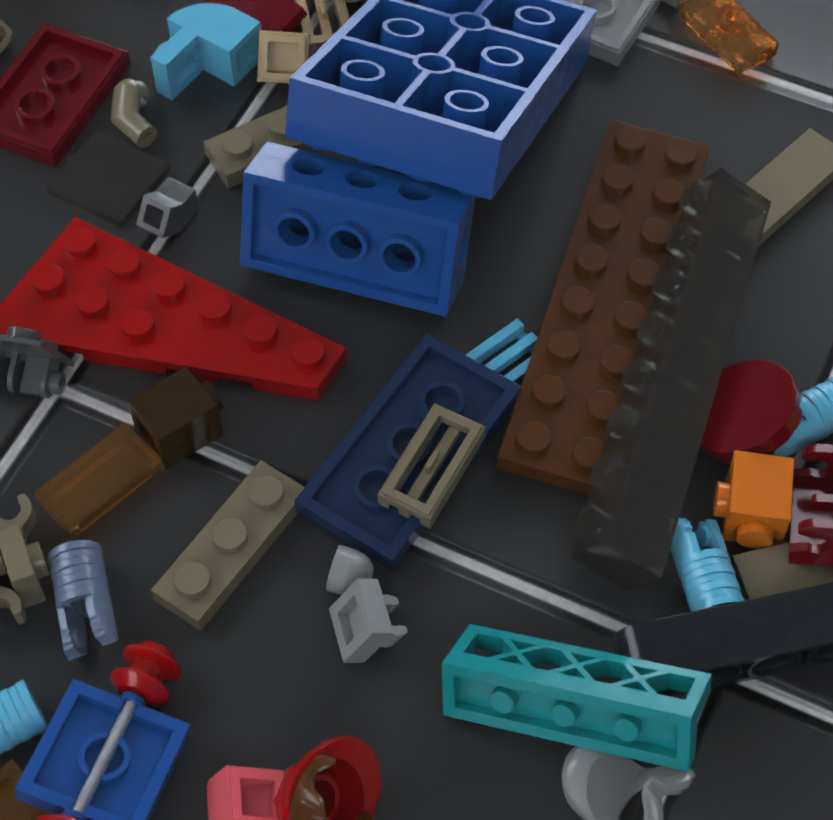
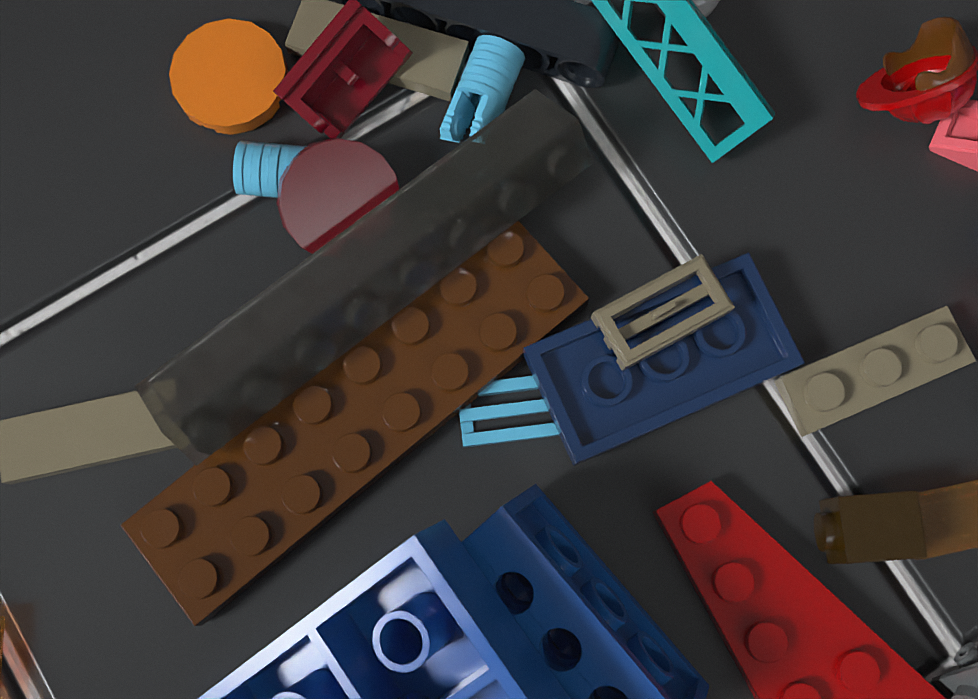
camera: 145 degrees left, 20 degrees up
(346, 568) = (786, 272): light grey hinge -> none
(363, 621) = (804, 216): light grey tile -> none
(755, 499) = (395, 118): orange brick -> none

